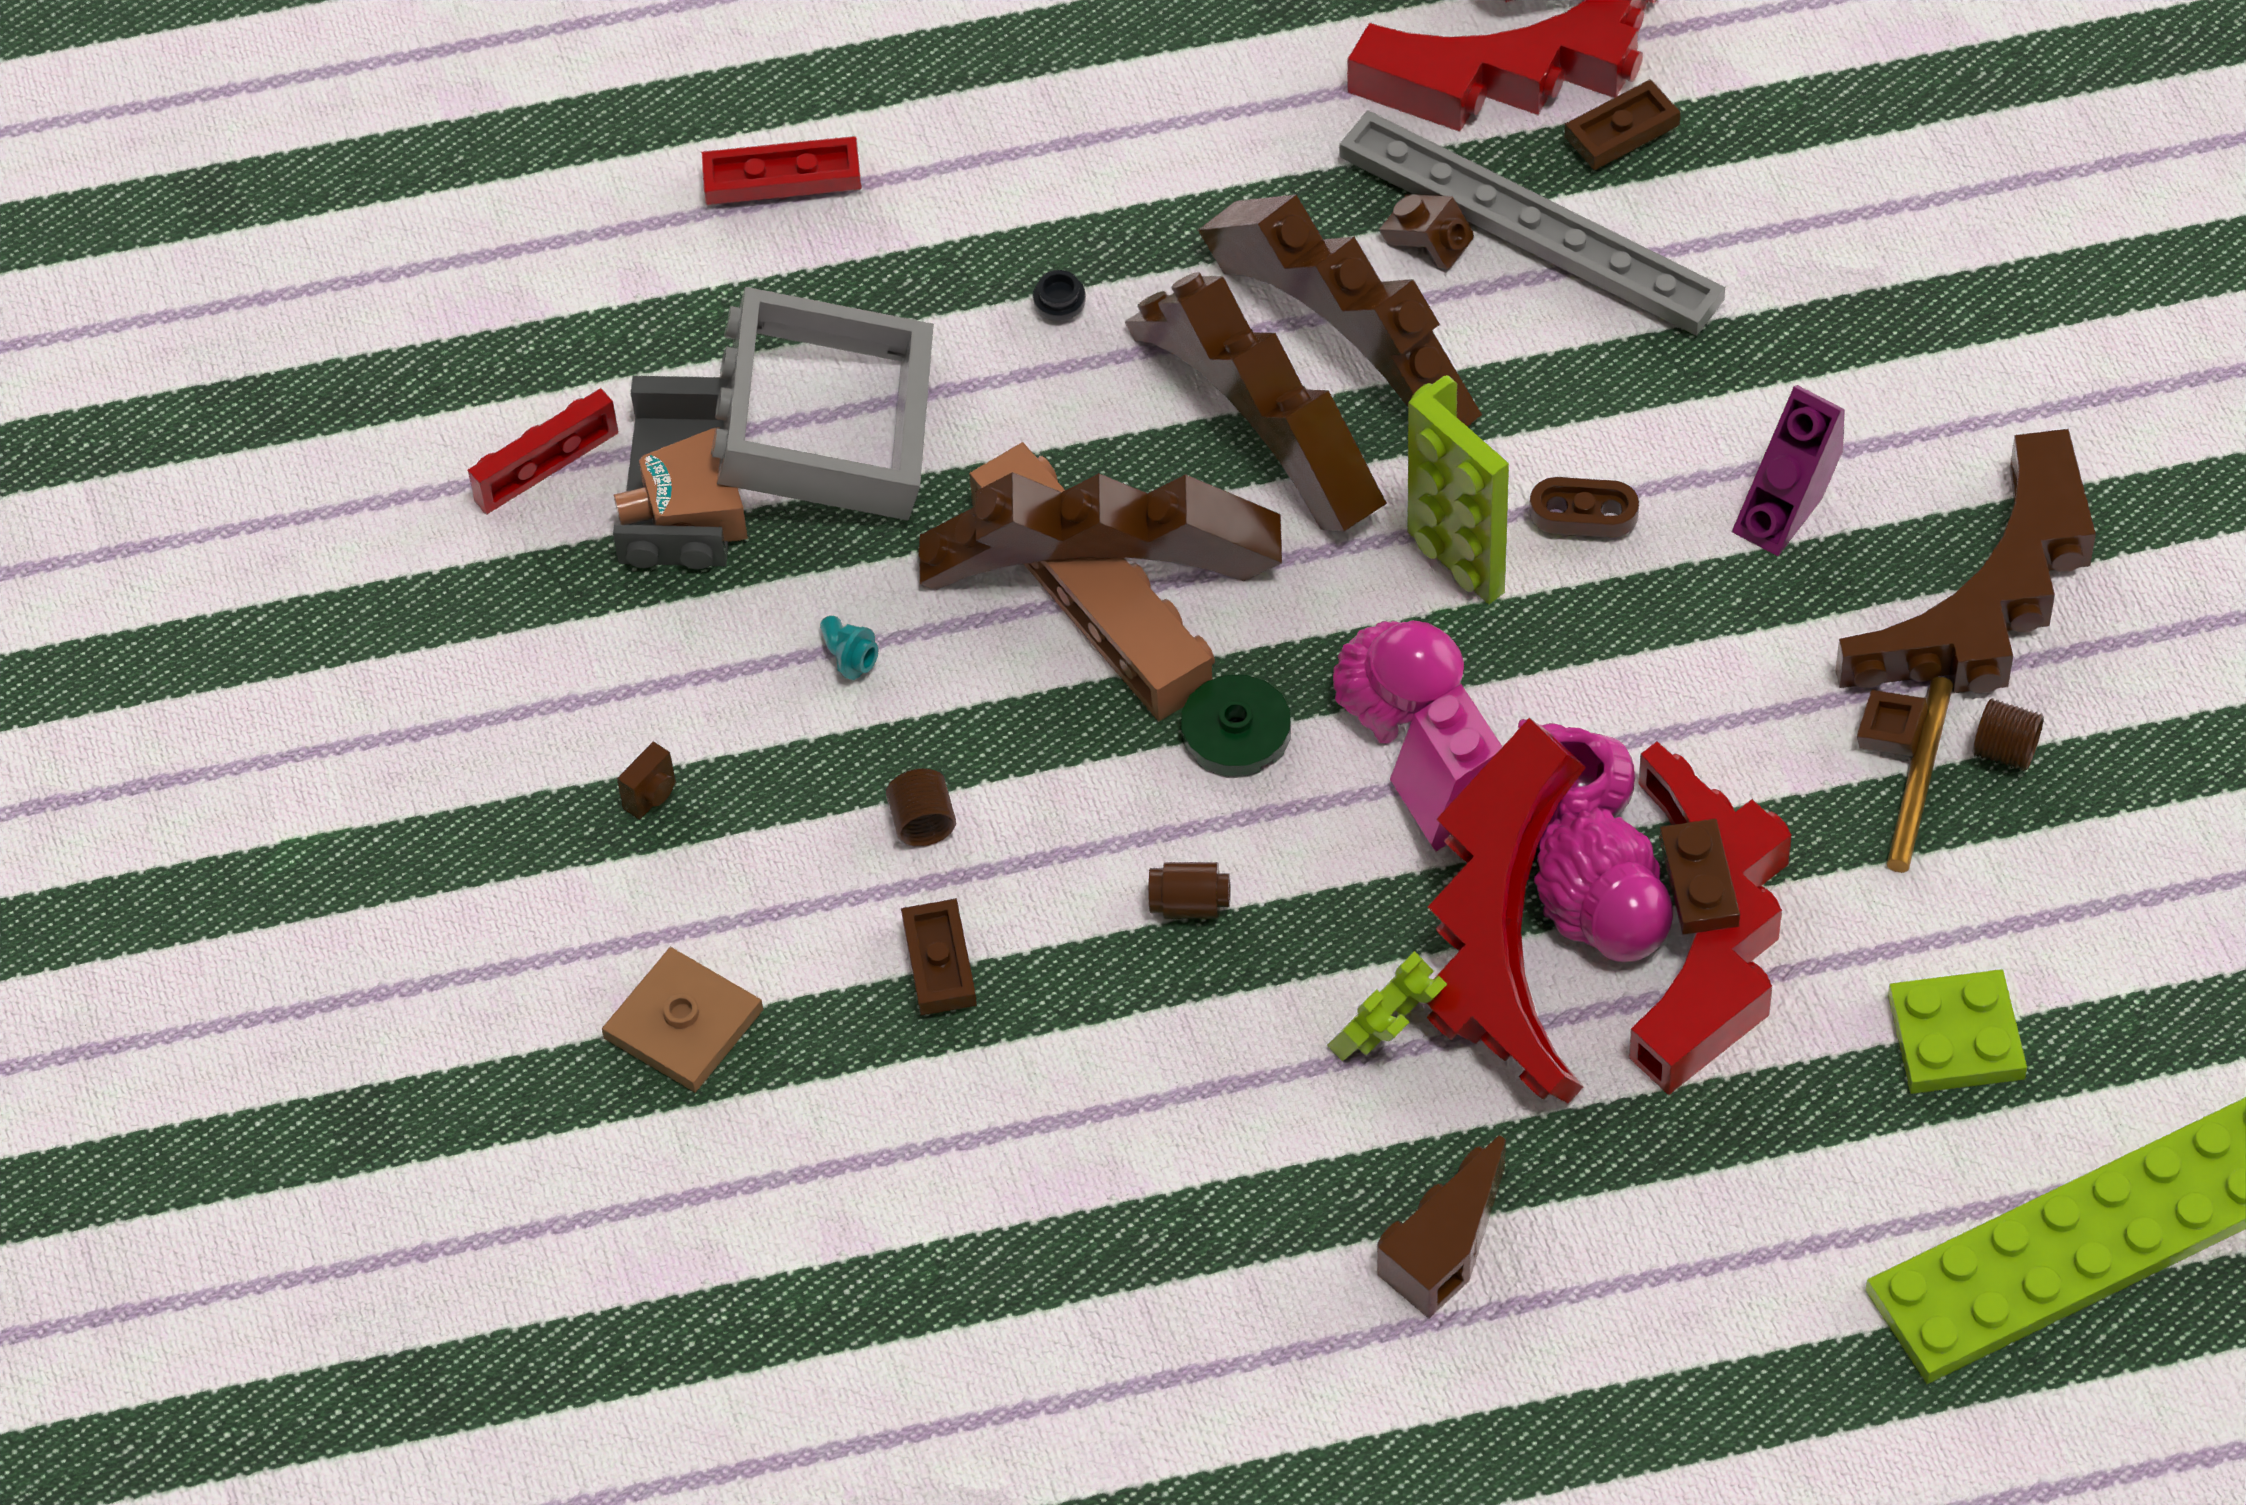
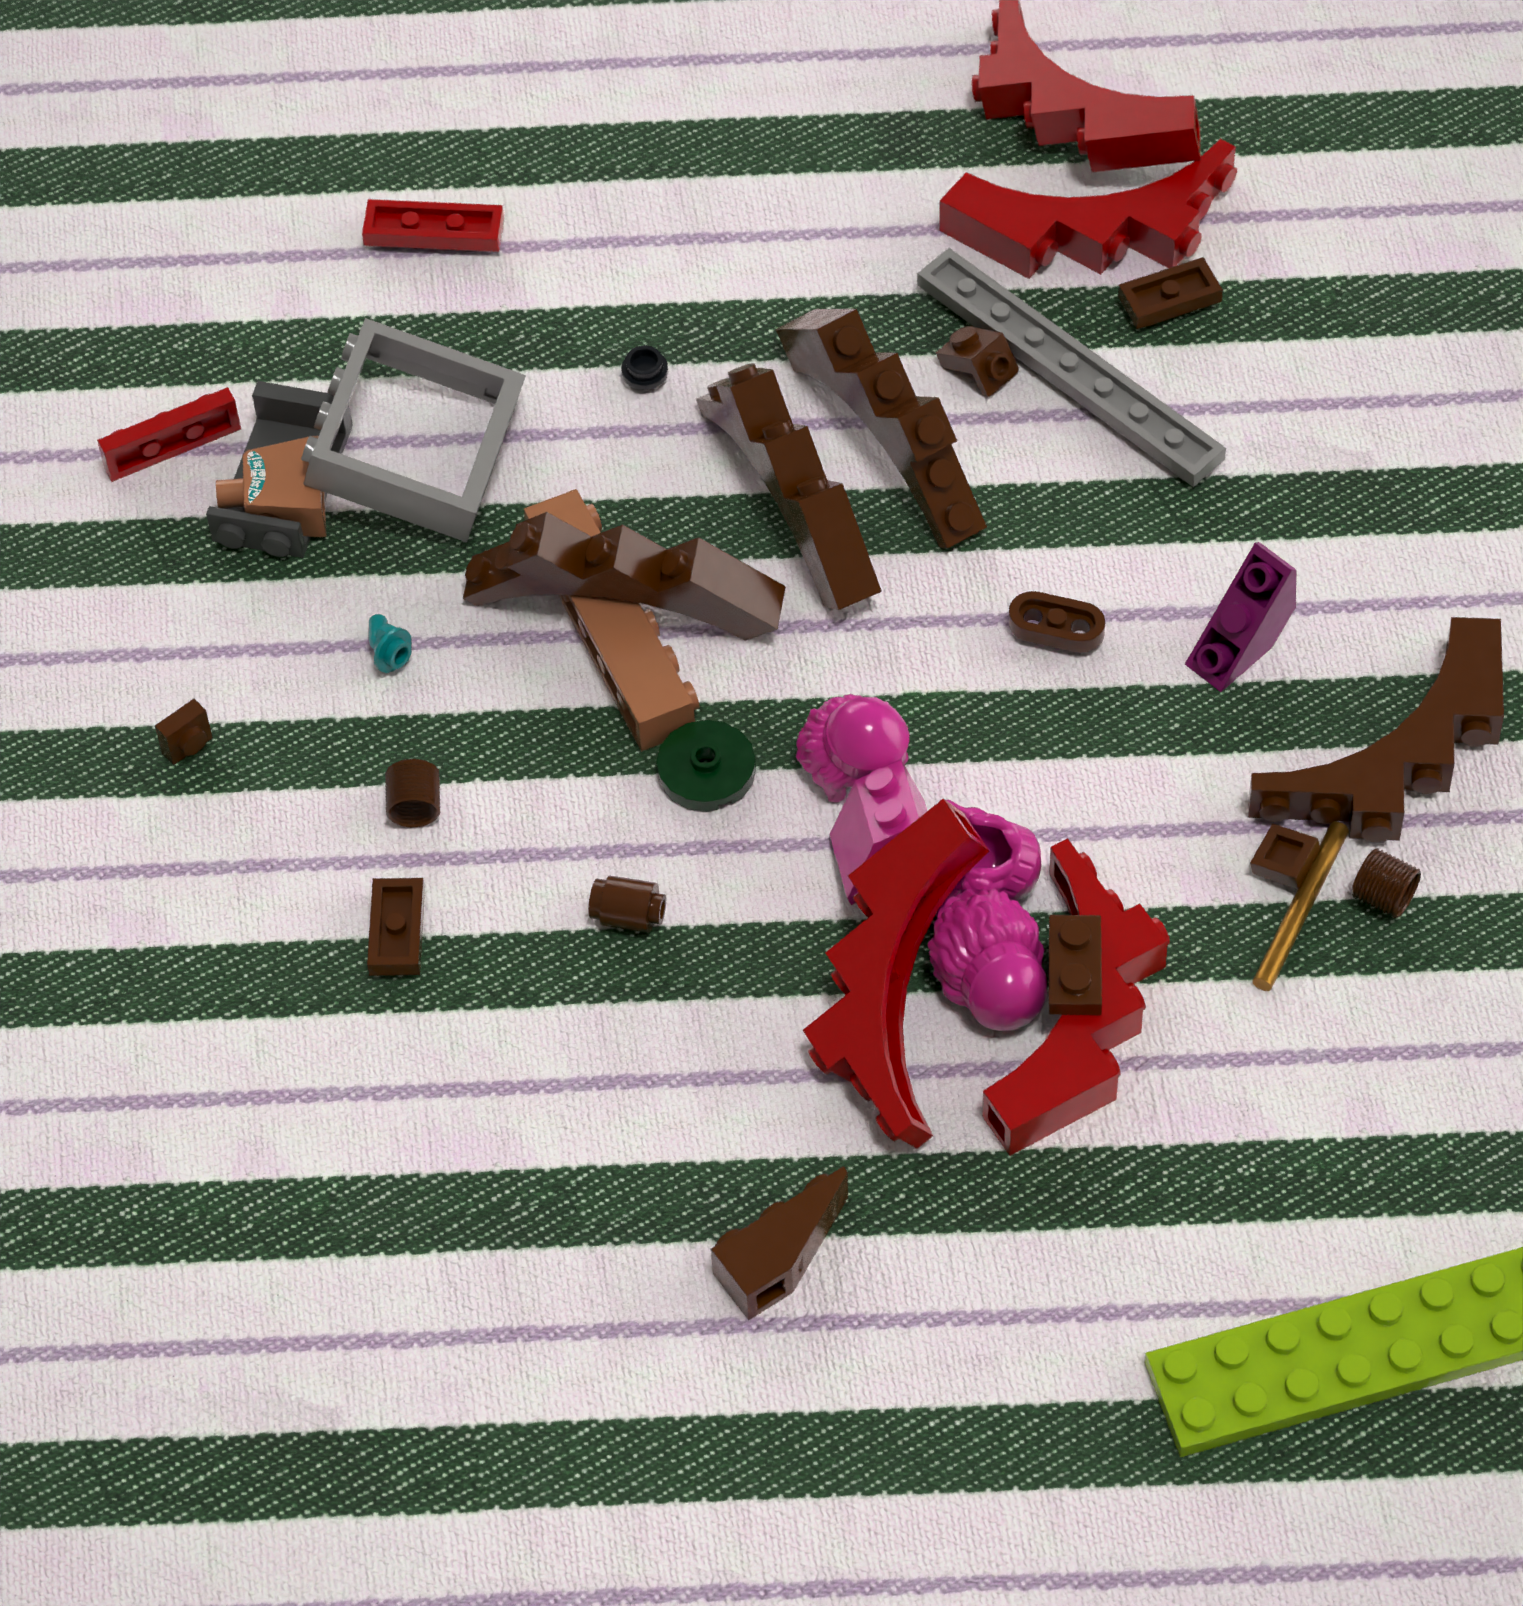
camera: 10 degrees right, 0 degrees up
(682, 1019) = (164, 944): medium nougat plate -> none
(1374, 1015) = (761, 1041): lime plate -> none
(1456, 492) = (935, 588): lime bracket -> none
(1957, 1031) = (1280, 1142): lime plate -> none

